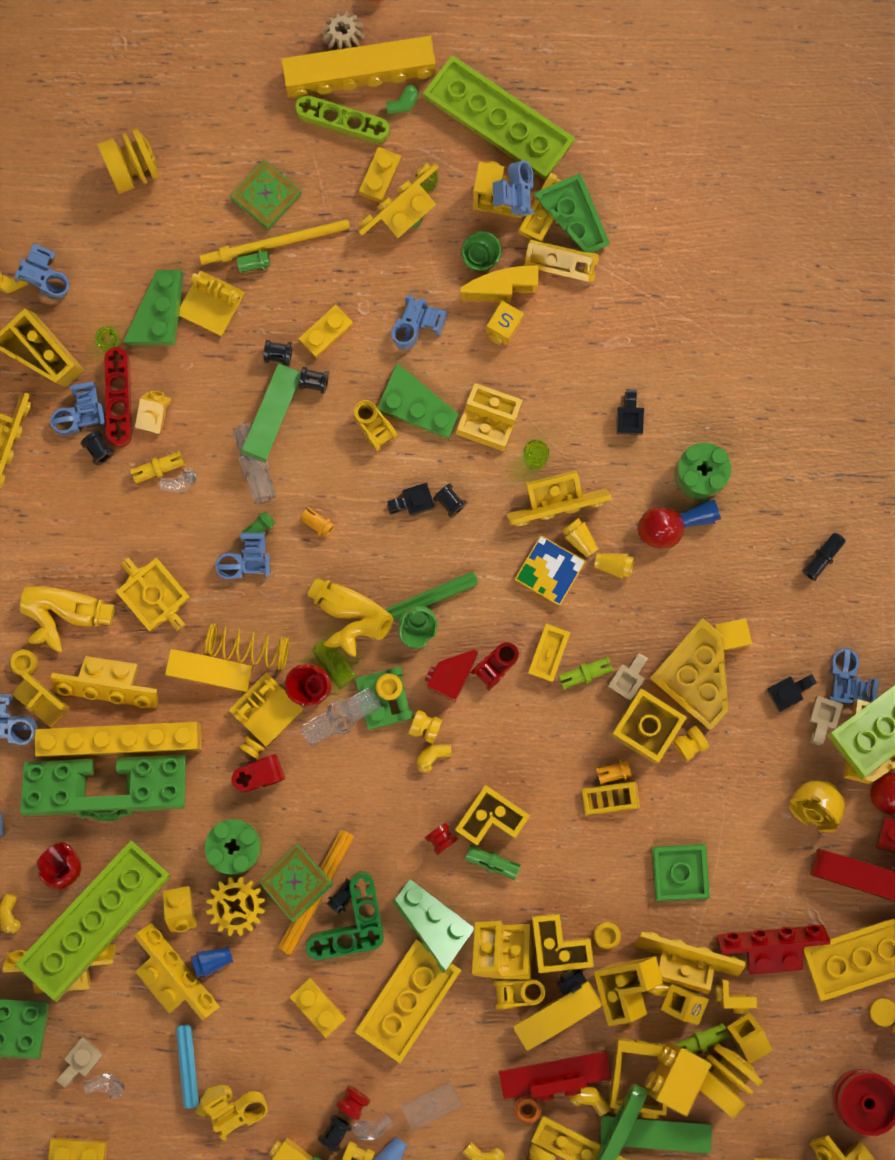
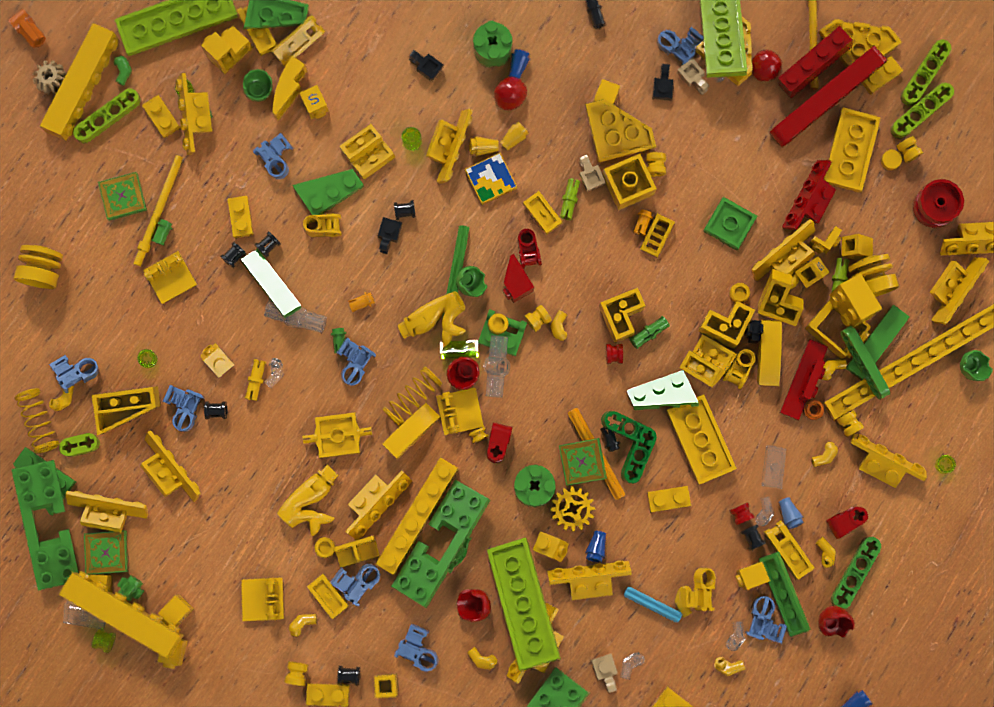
camera: 55 degrees left, 0 degrees up
(113, 397) = (190, 376): red beam -> none
(158, 312) = (152, 313): bright green wing -> none
(518, 191) = (235, 35): medium blue piece -> none
(819, 804) = (744, 112): yellow cylinder -> none

